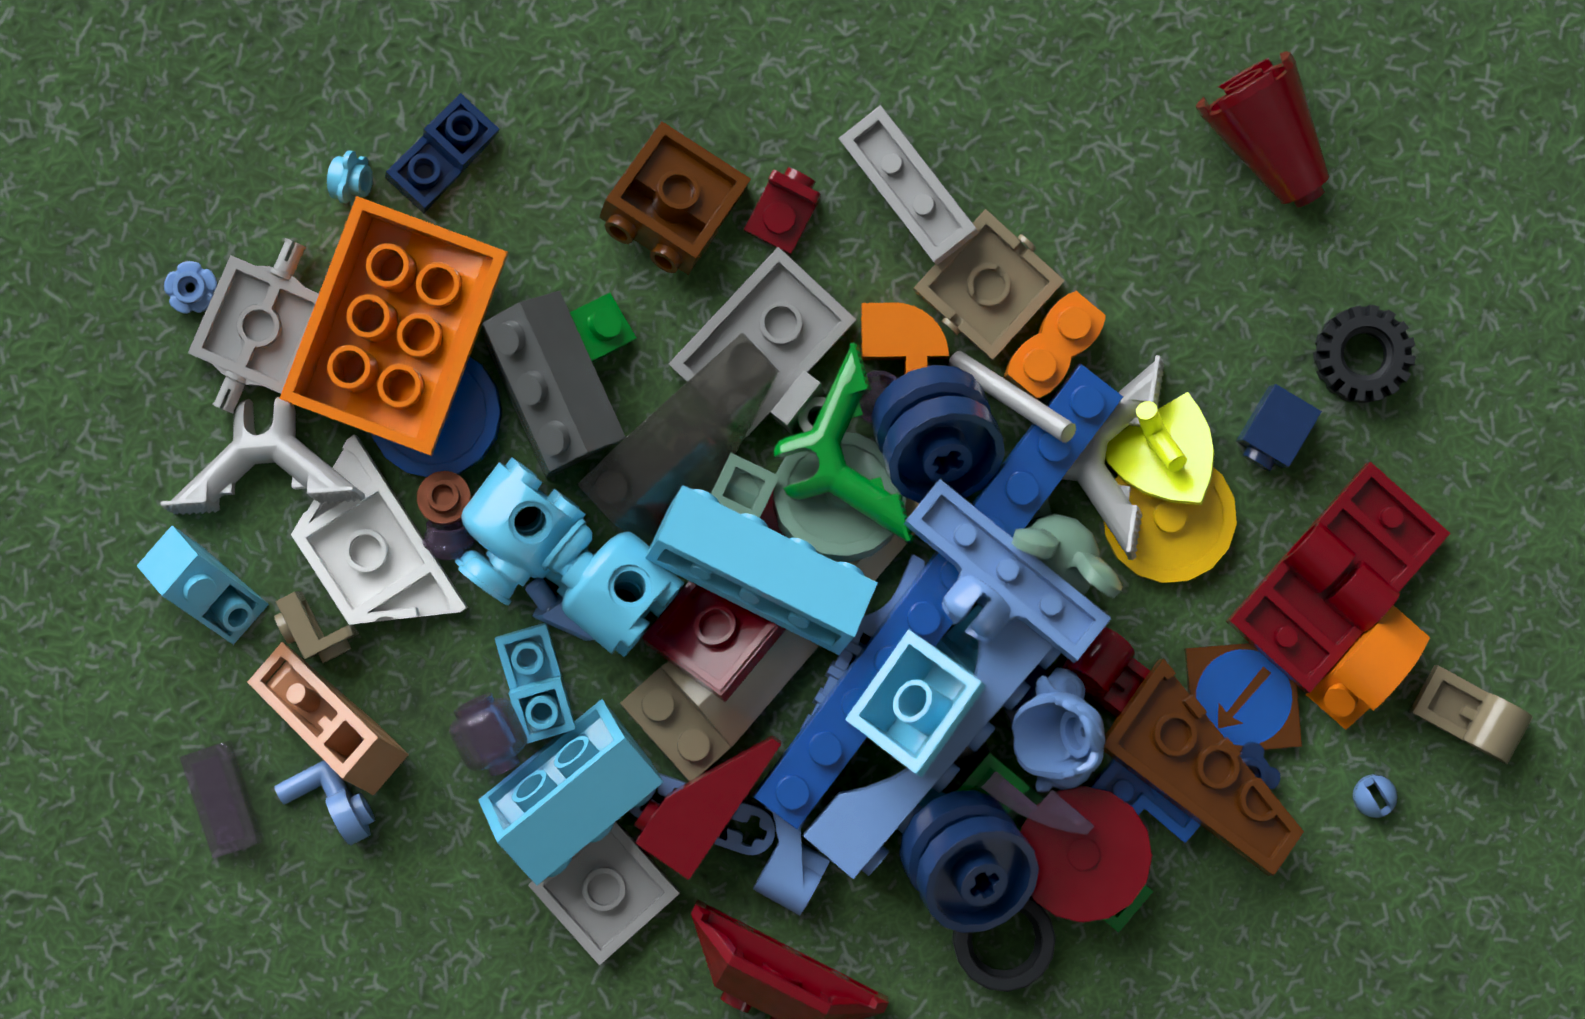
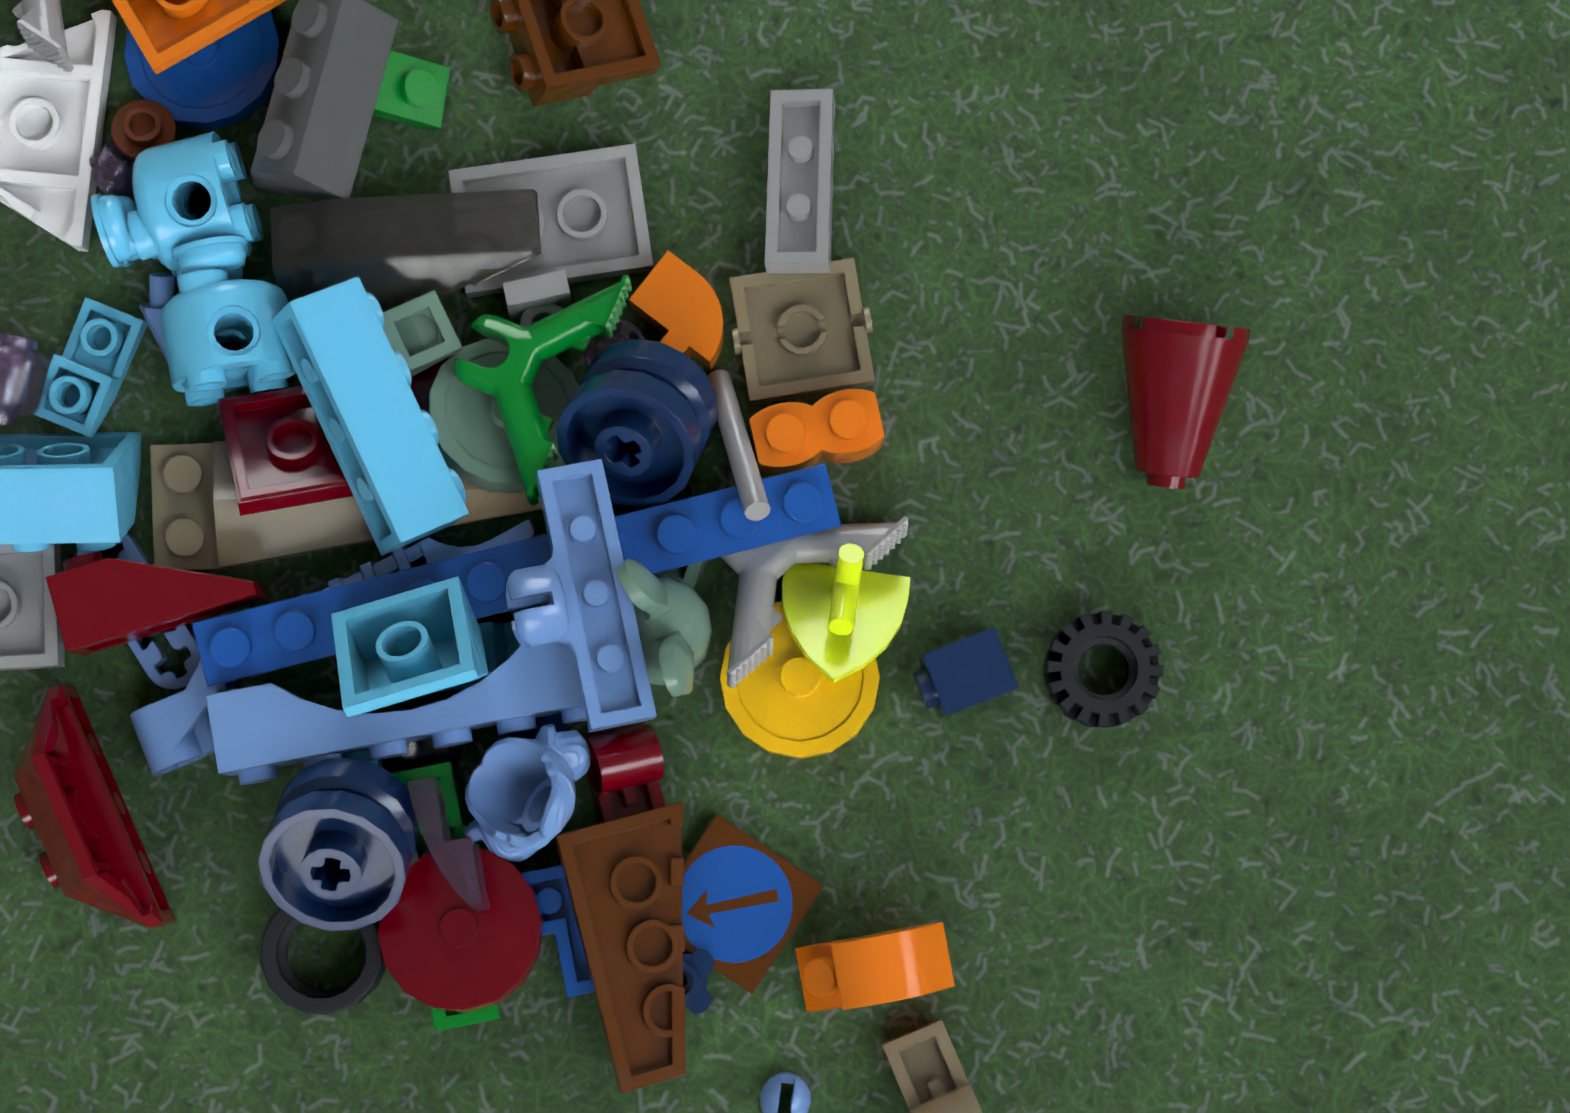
camera: 30 degrees right, 5 degrees down
(784, 209) = (669, 117): dark red bracket -> none
(1338, 577) = (912, 860): dark red plate -> none

